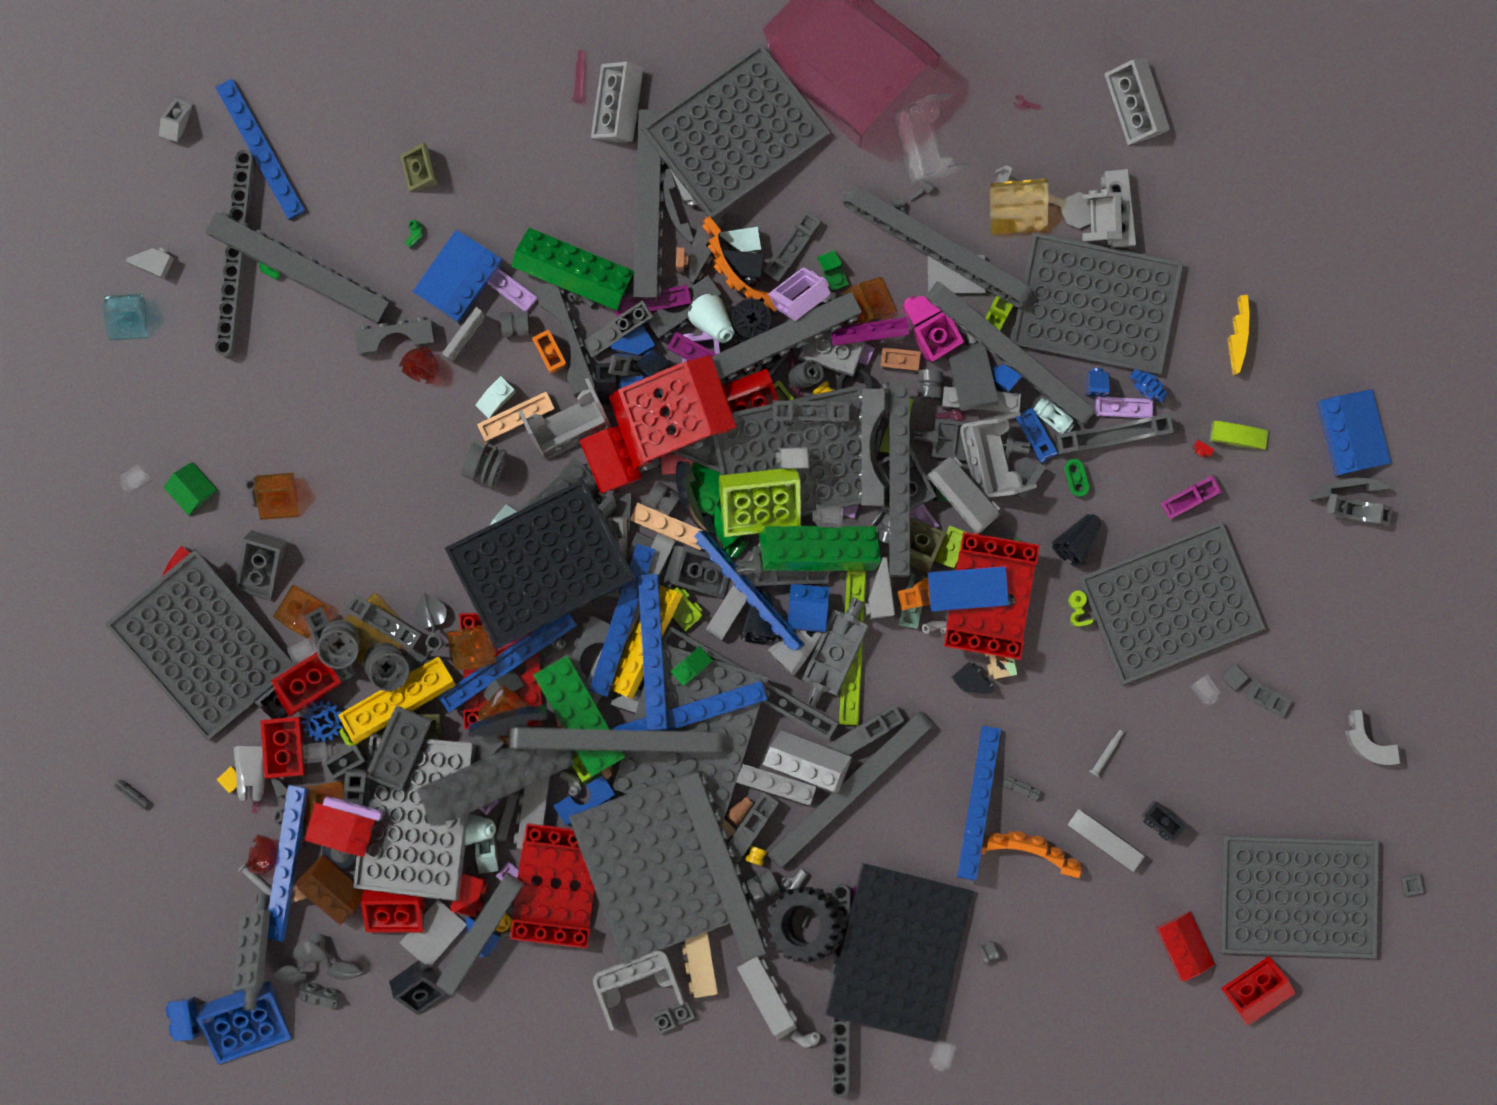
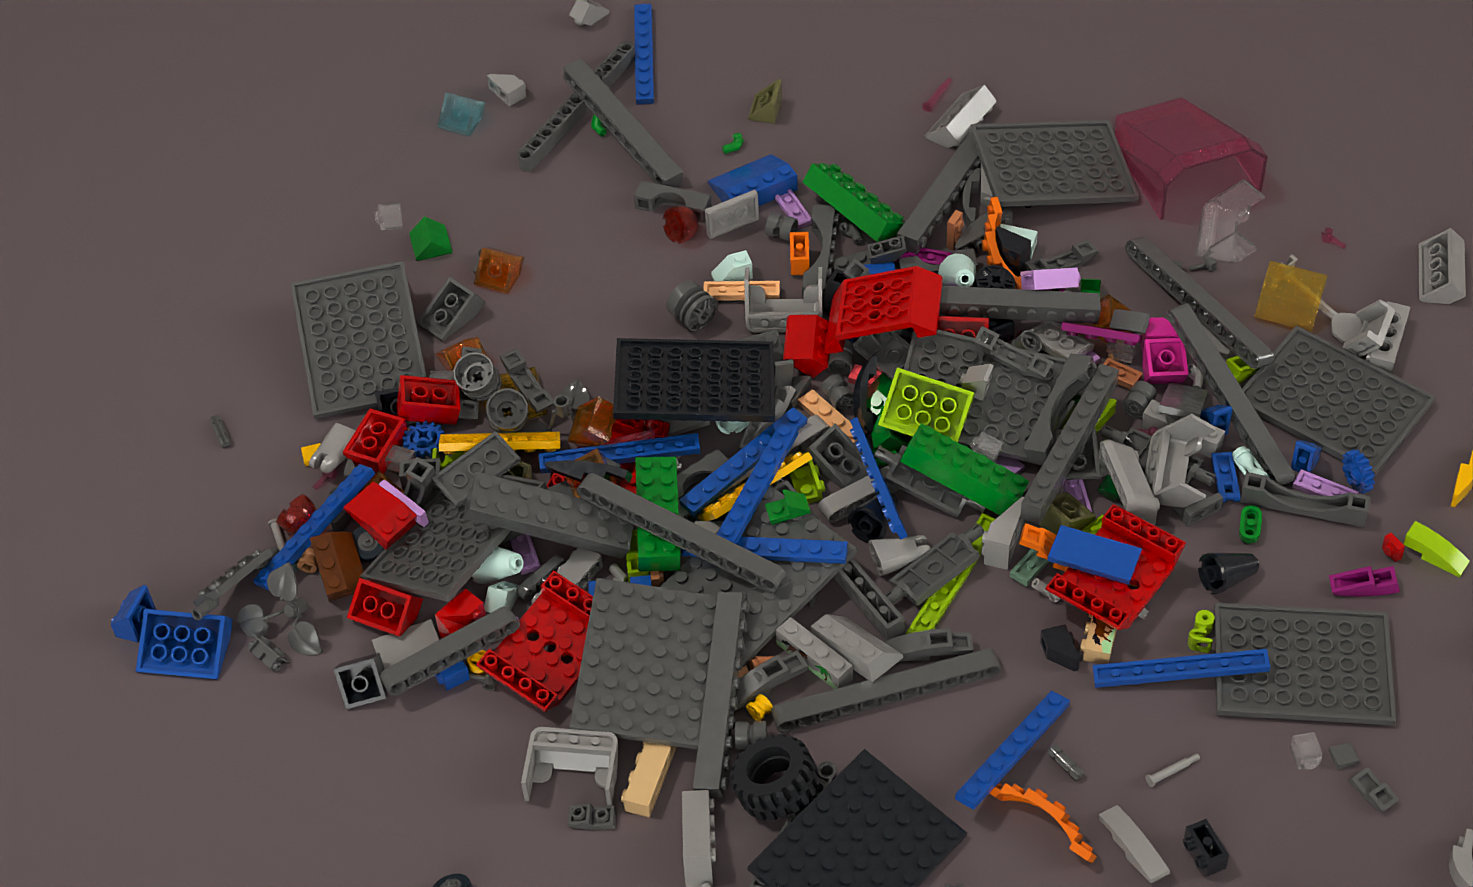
camera: 30 degrees right, 35 degrees down
(808, 607) = (929, 520): blue slope -> none
(893, 315) = (1129, 321): none -> dark grey slope
(1078, 659) = (1181, 668): none -> blue plate

